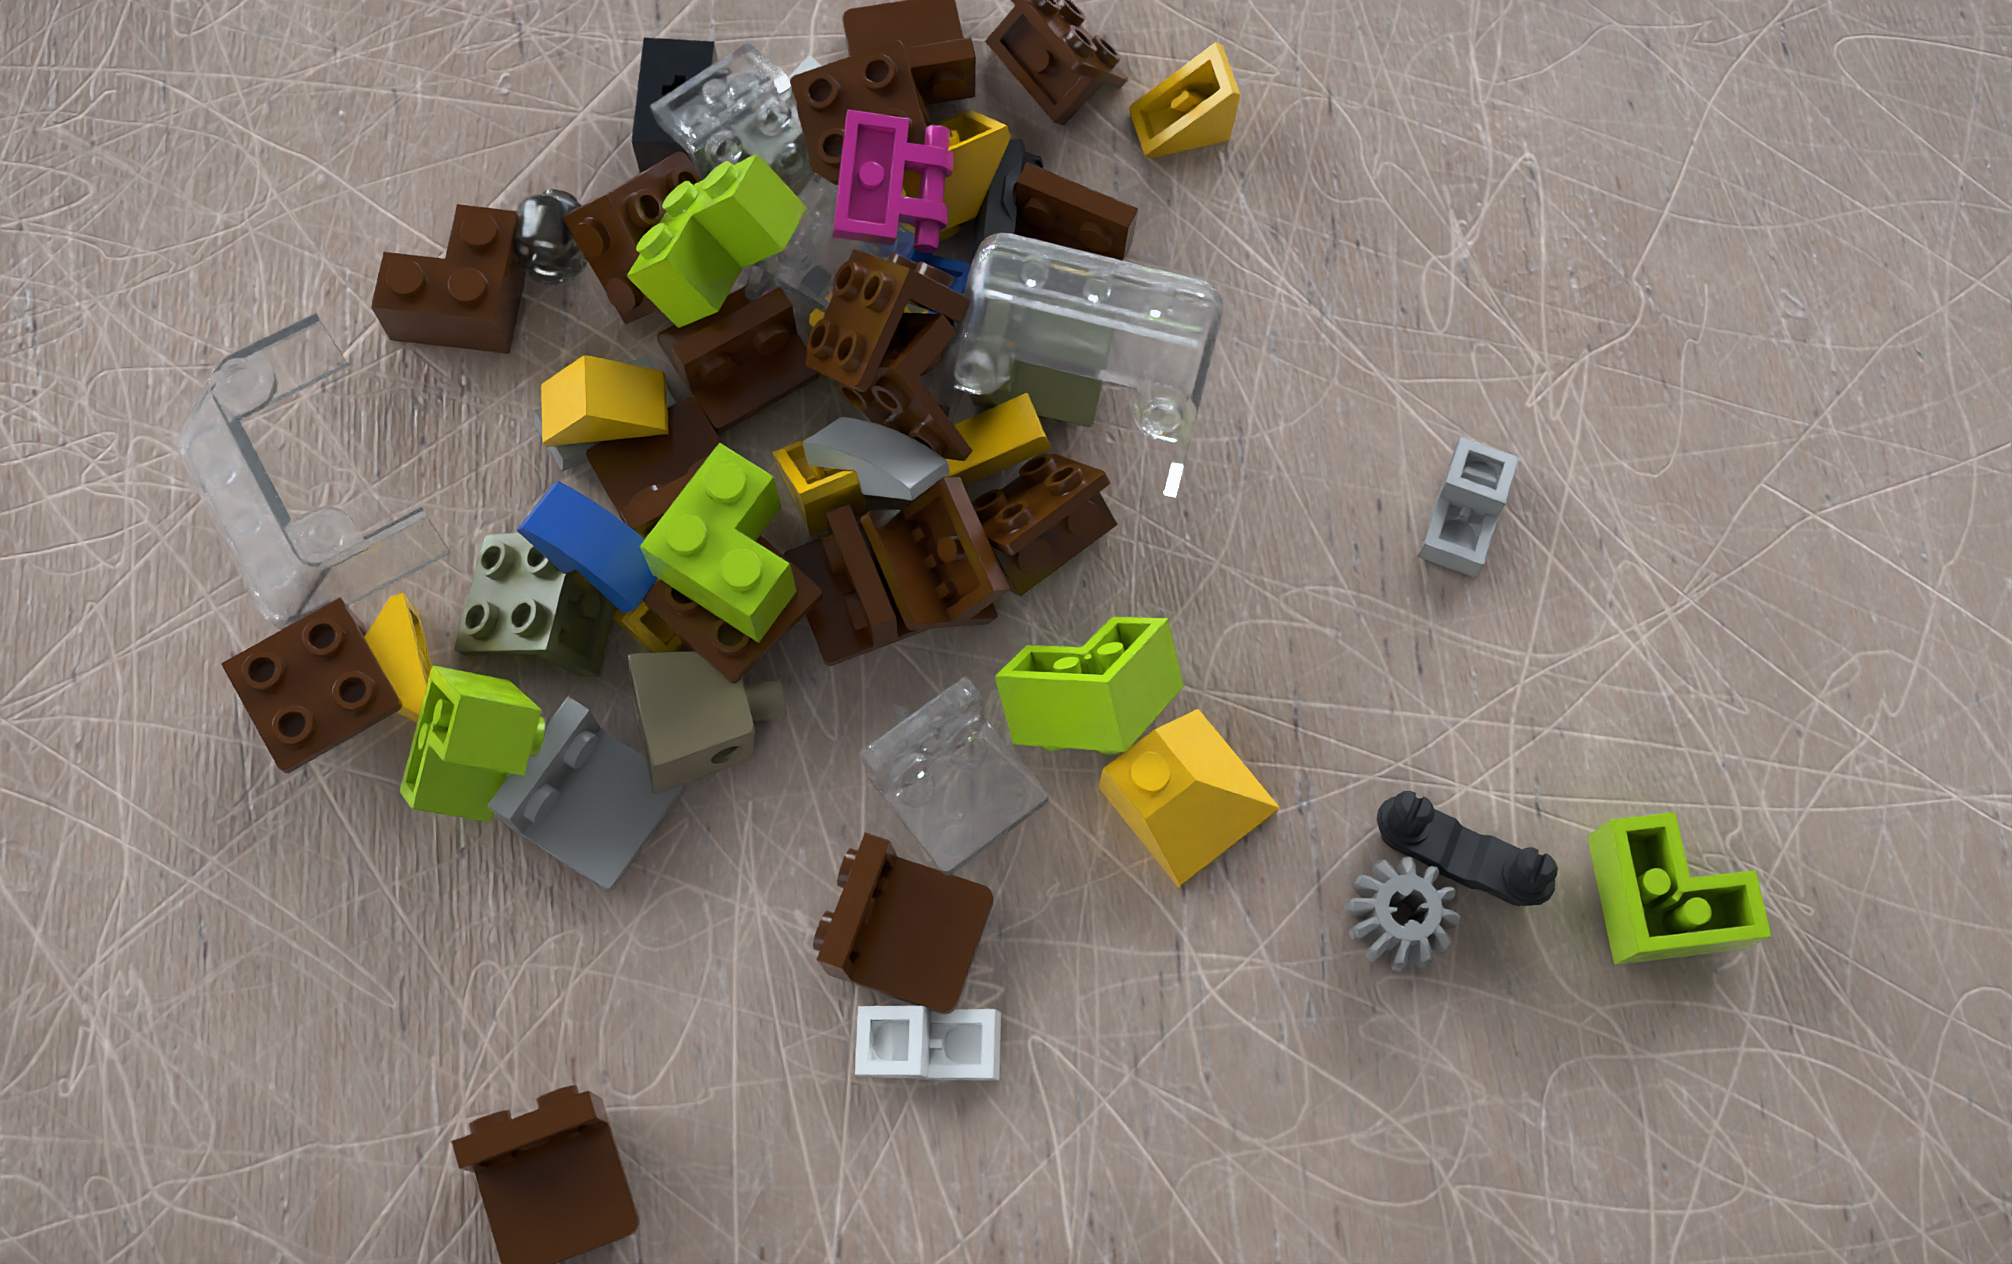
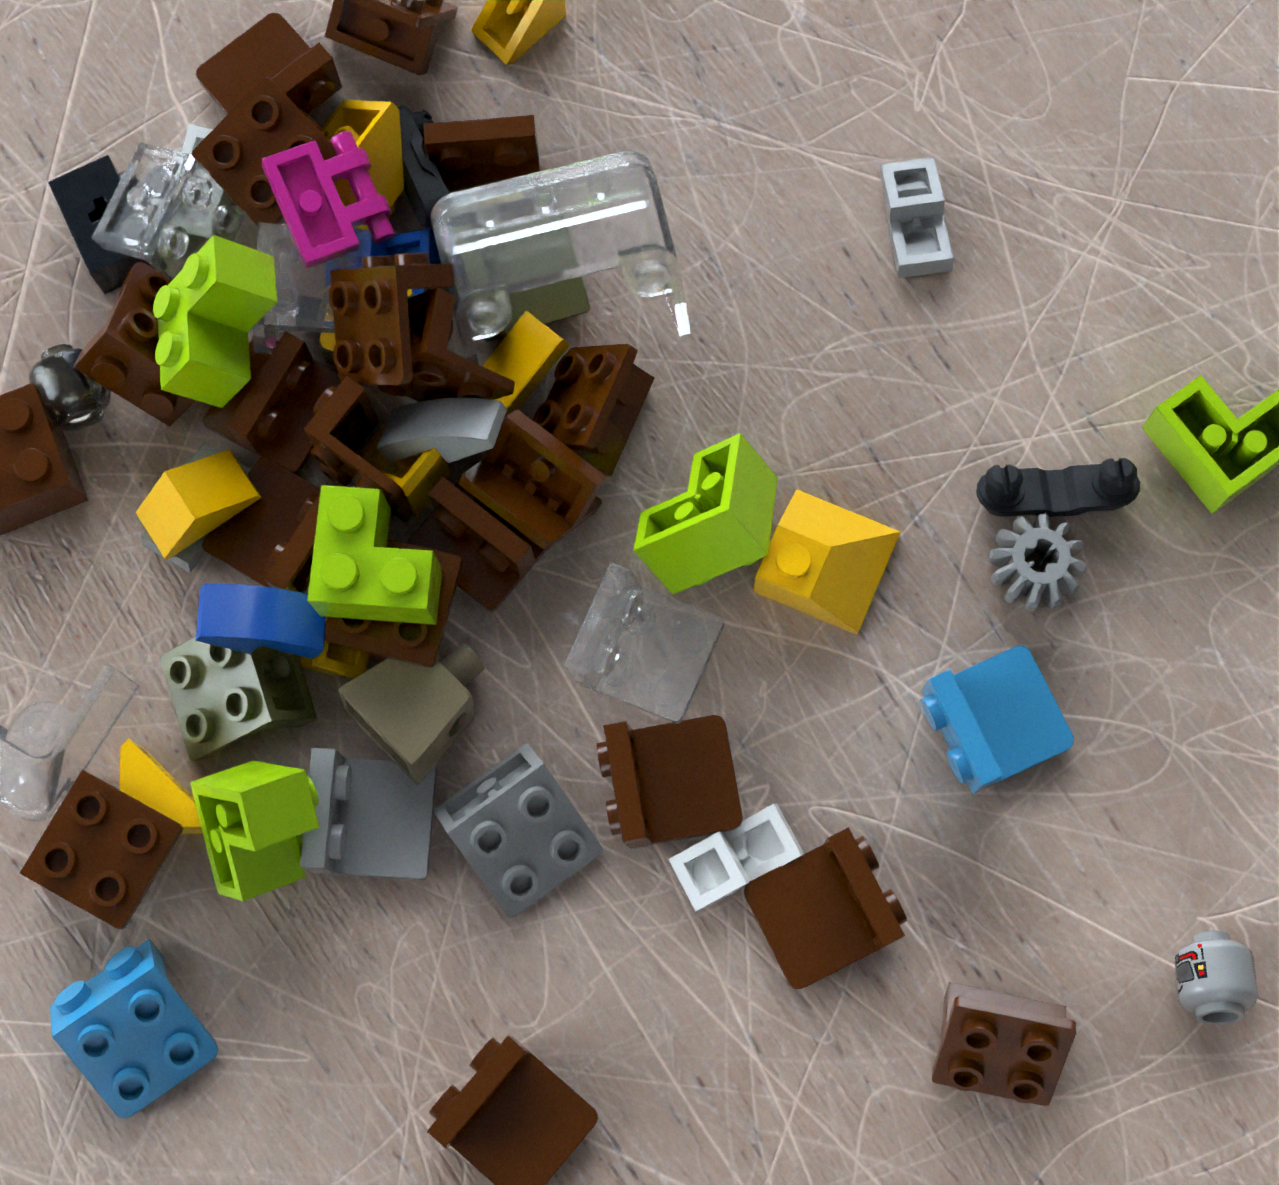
camera: 20 degrees left, 5 degrees up
(236, 879) = (130, 1030): none -> dark azure bracket
(725, 895) = (518, 830): none -> light grey bracket
(777, 409) = (338, 430): none -> reddish brown bracket
(985, 1147) = (825, 909): none -> reddish brown bracket
(1272, 1049) = (996, 718): none -> dark azure bracket

